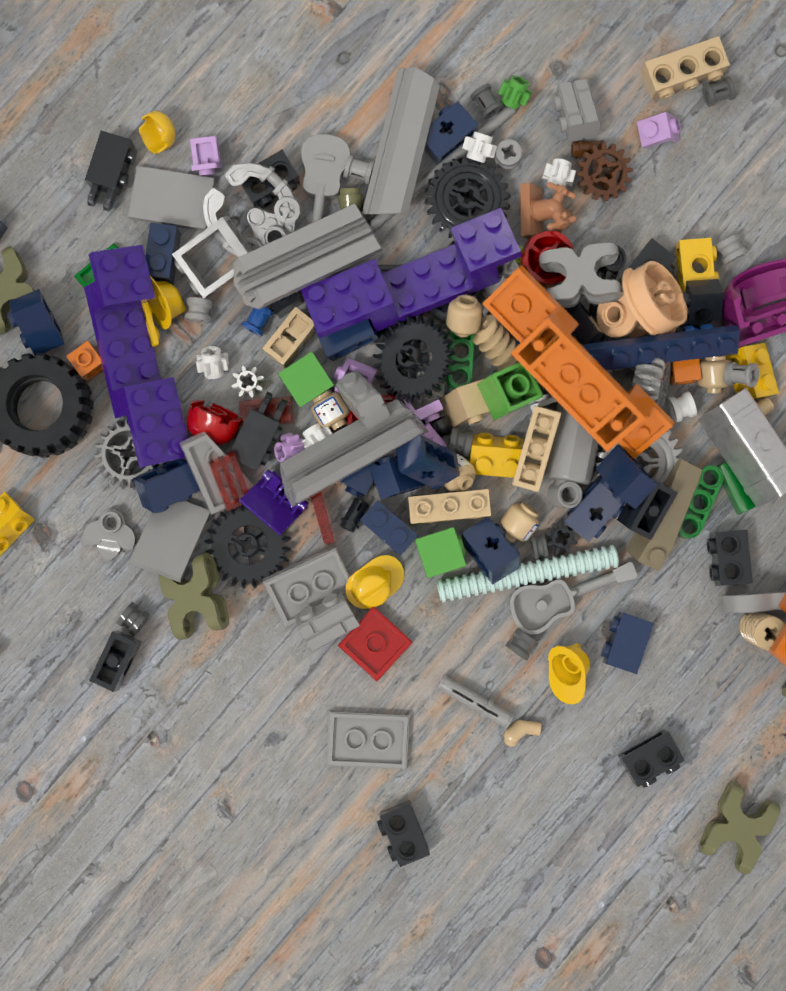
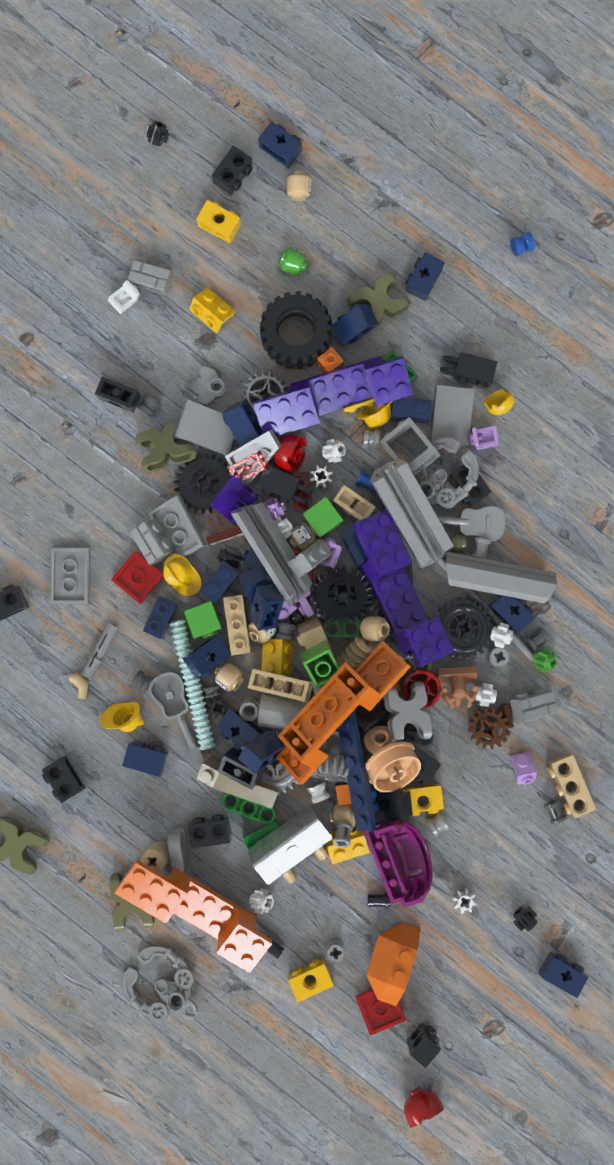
camera: 90 degrees right, 0 degrees up
(433, 613) = (160, 617): none -> dark blue brick

